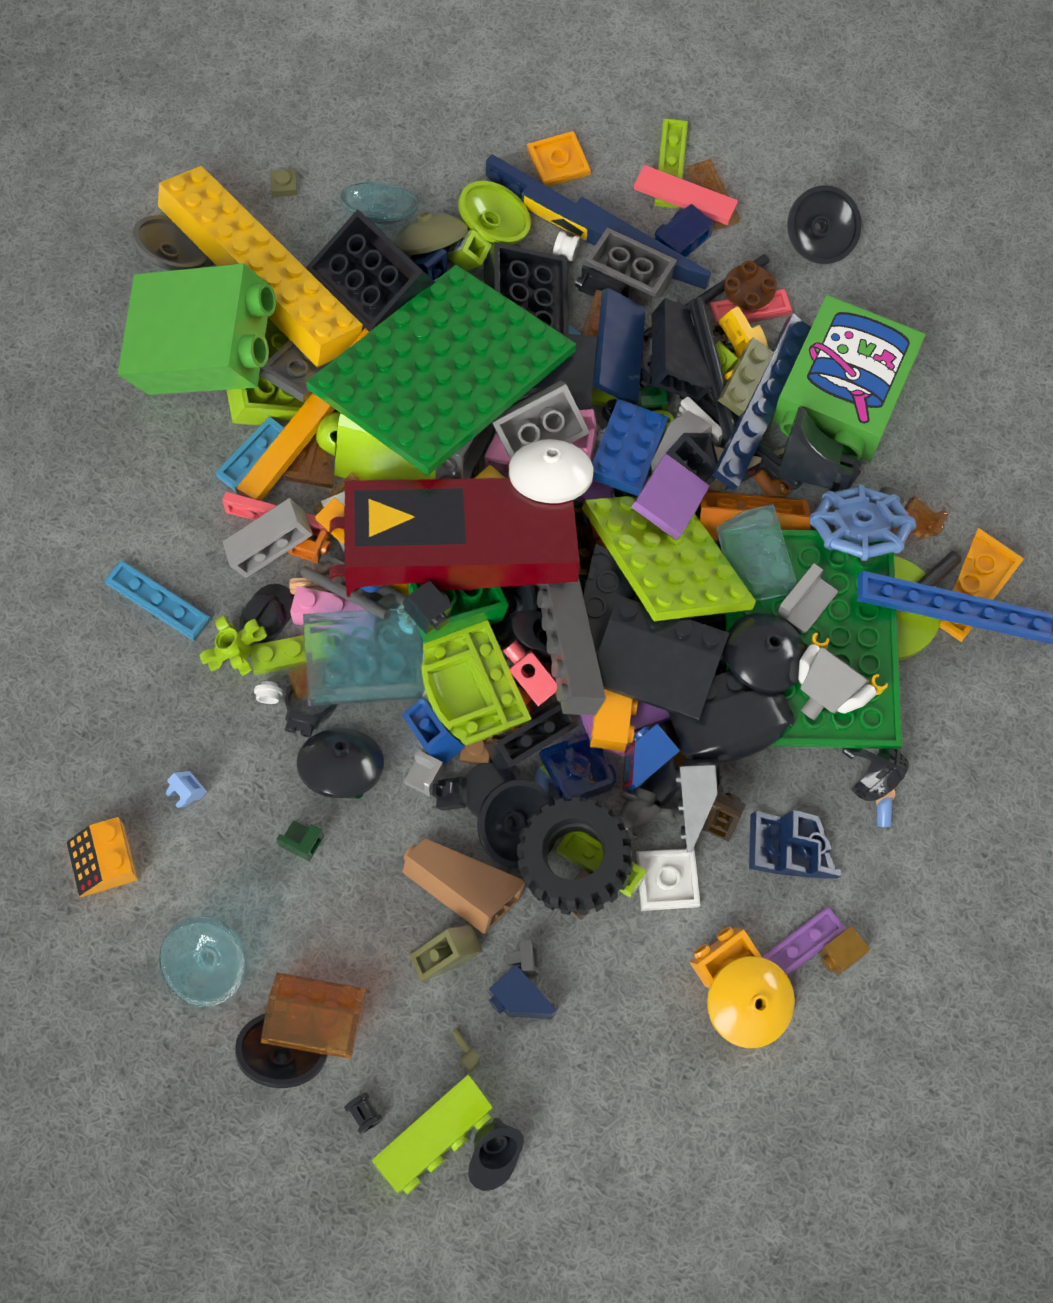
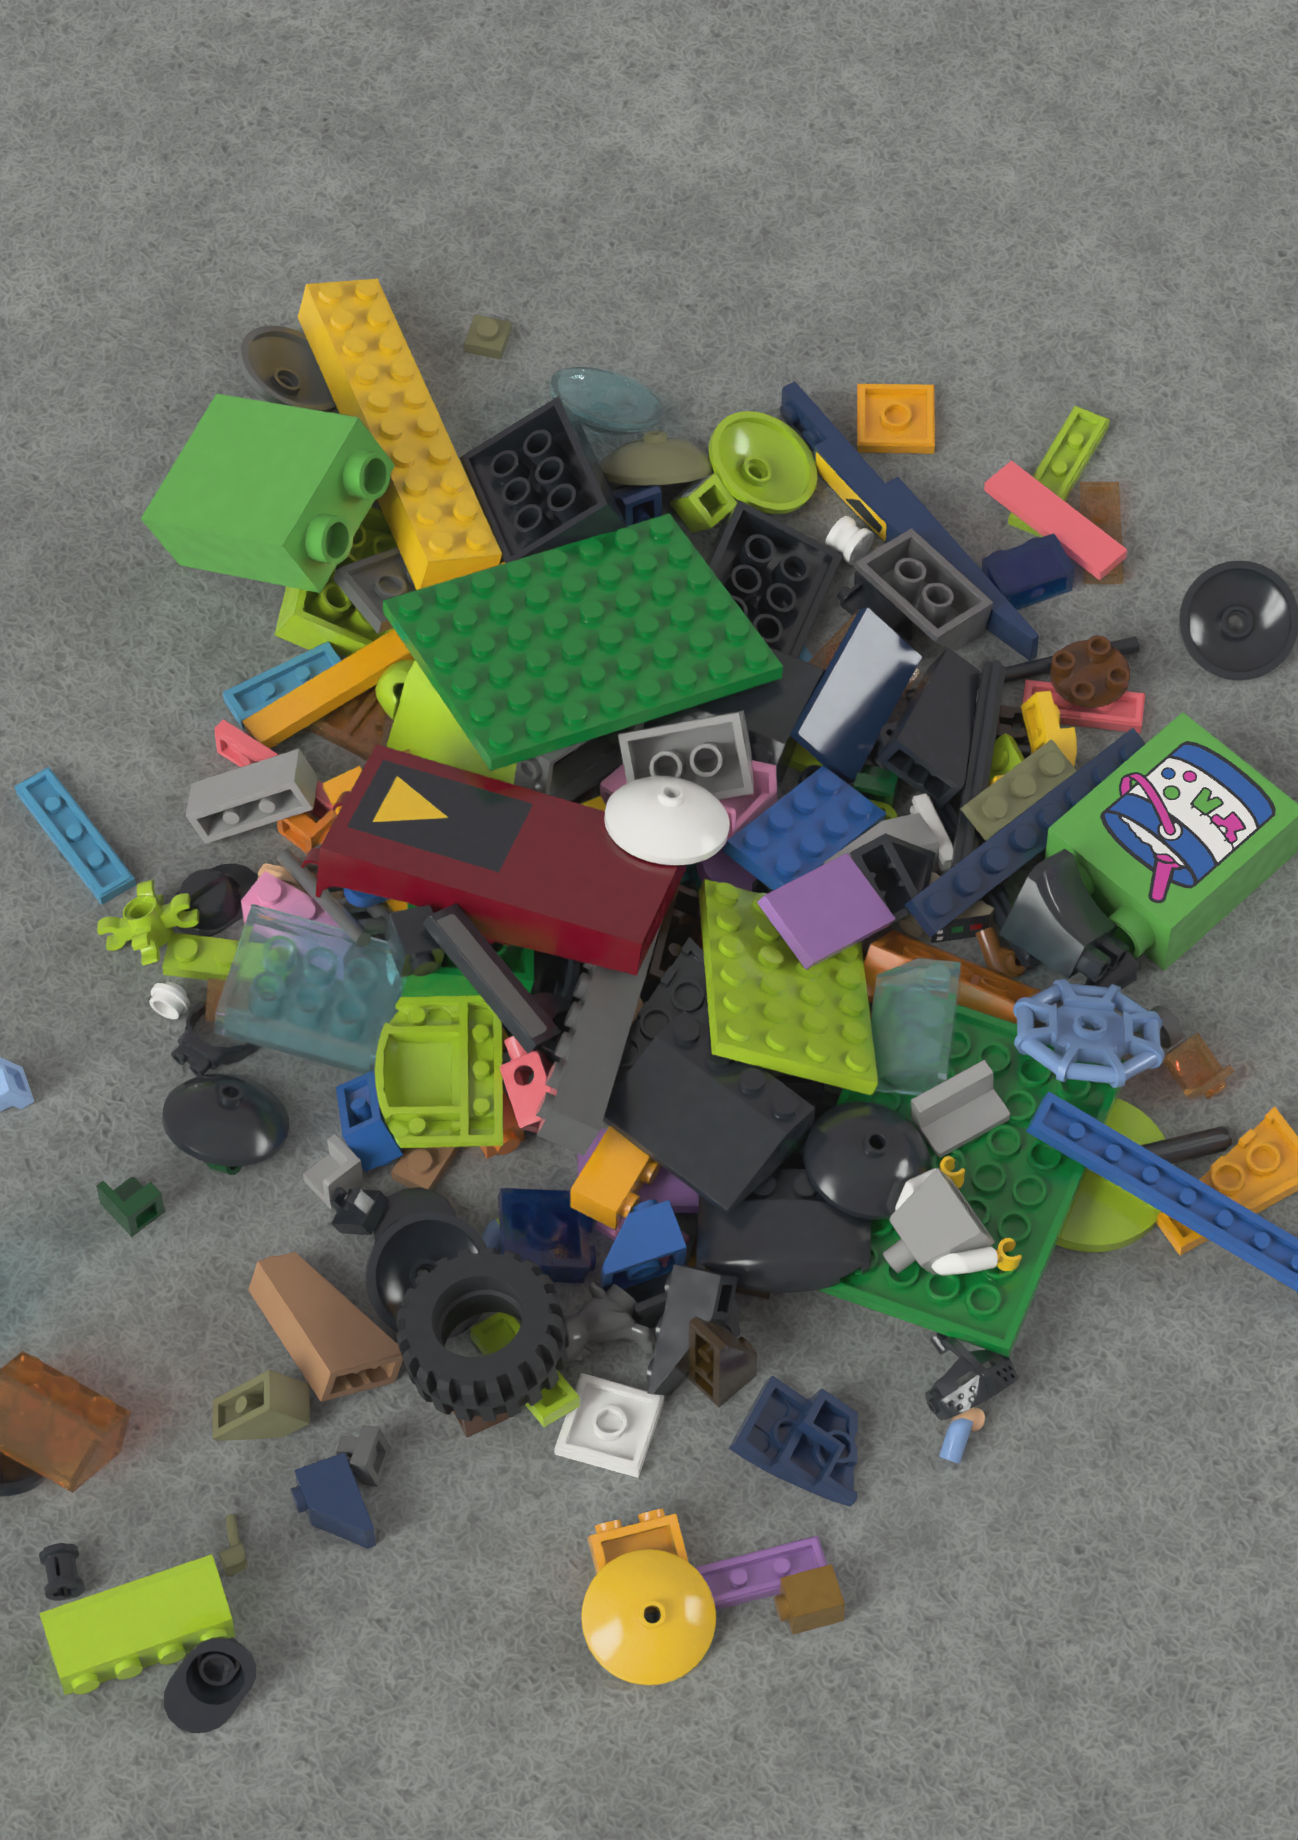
camera: 25 degrees right, 10 degrees down
(489, 616) = (491, 978): none -> tile
(530, 737) = (497, 1167): black brick -> none

